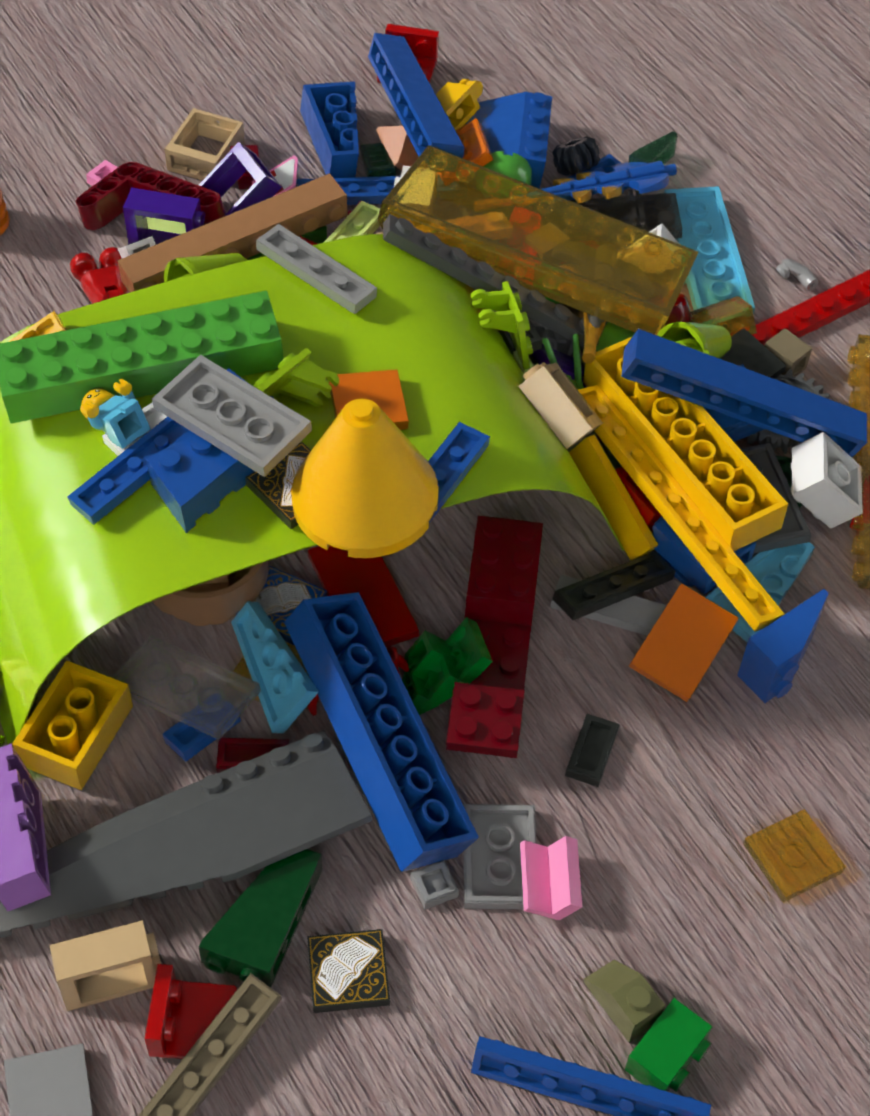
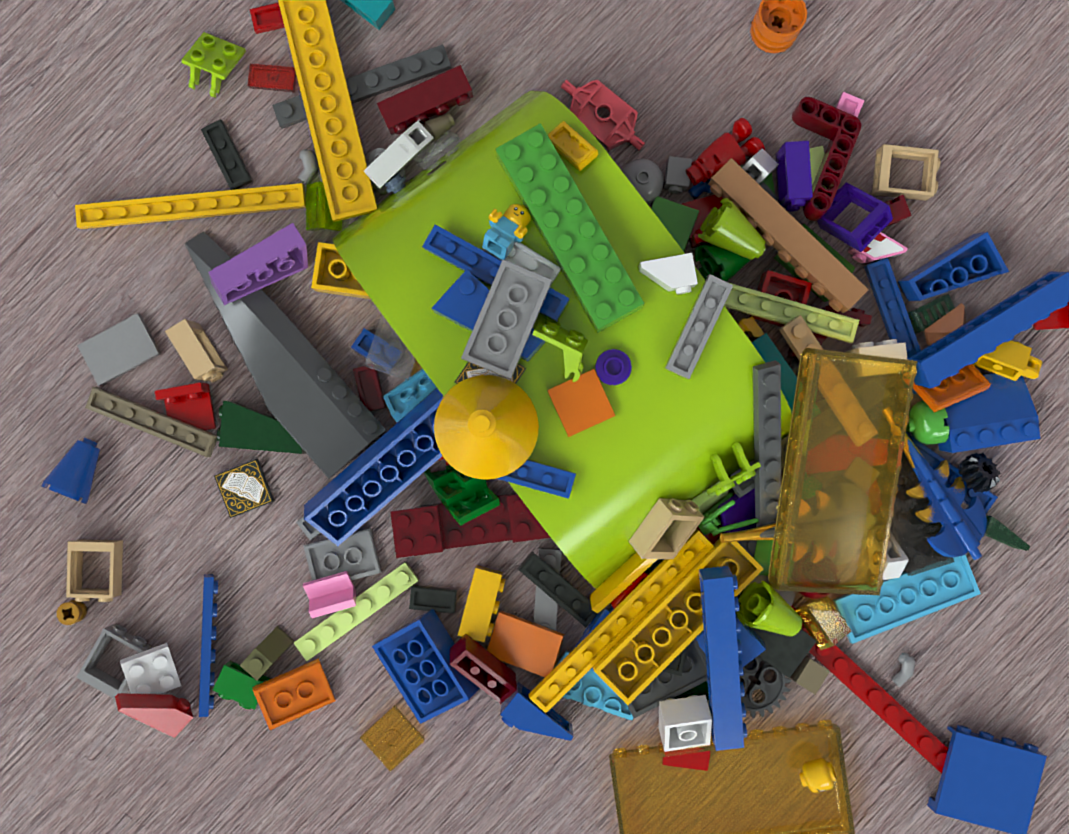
camera: 85 degrees right, 35 degrees up
(241, 270) = (672, 272): none -> white slope
(335, 356) = (613, 367): none -> dark purple piece
(597, 876) = (366, 605): none -> yellowish green plate
(612, 684) = (481, 603): none -> yellow brick
(693, 778) = (421, 668): none -> blue slope
(698, 966) = (293, 694): none -> orange tile
(707, 690) = (483, 669): none -> dark red brick

